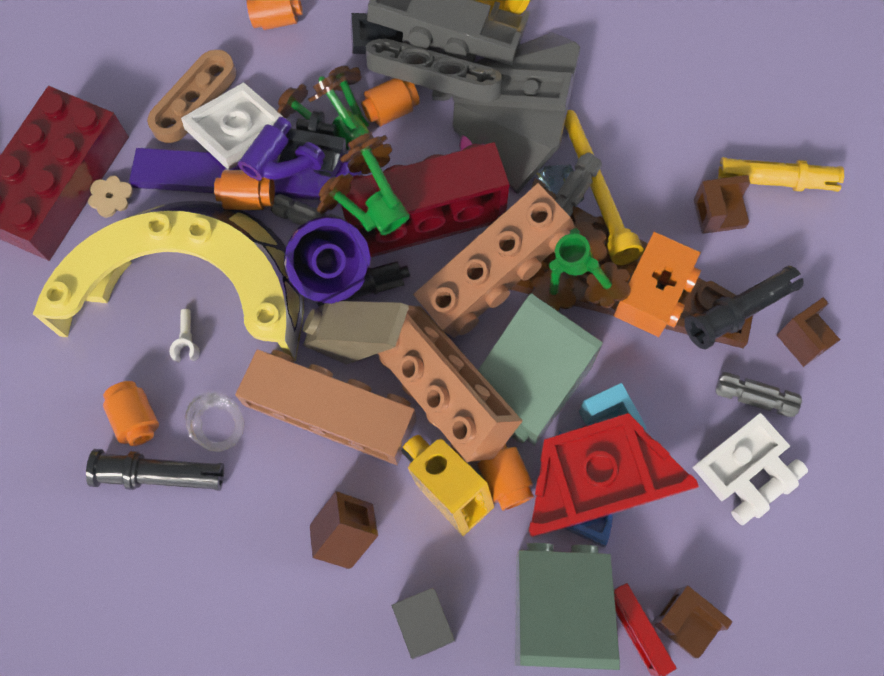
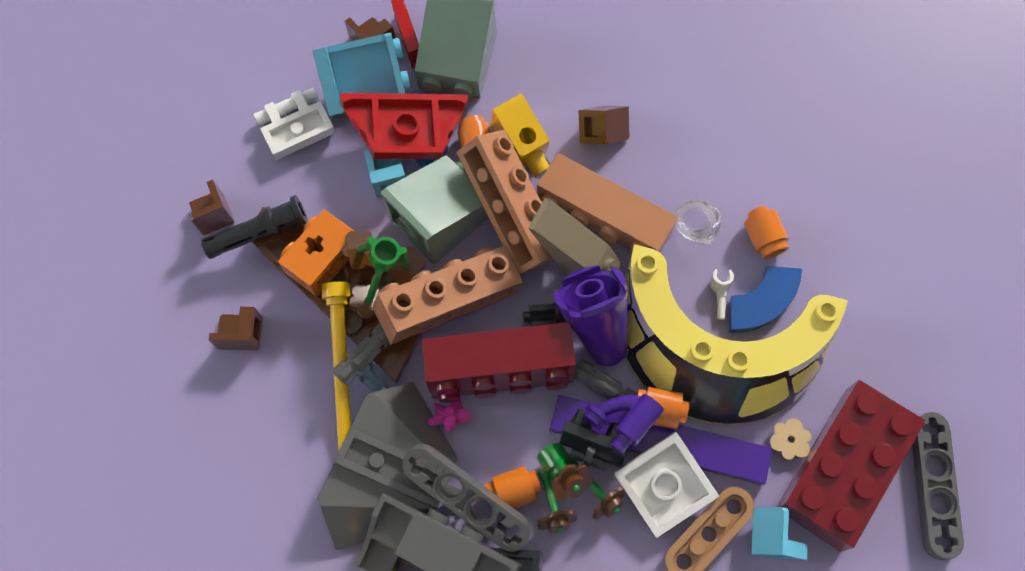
camera: 170 degrees left, 0 degrees up
(127, 94) = (771, 535): none -> medium azure panel
(132, 337) = (766, 301): none -> blue tile
(135, 470) = (761, 189): black pin -> none
(384, 207) = (543, 350): plant -> none
(423, 623) = (555, 52): dark grey panel -> none
(686, 543) = (360, 67): none -> medium azure panel
(758, 394) = (268, 174): dark grey axle -> none
(794, 175) = (162, 347): yellow pin -> none

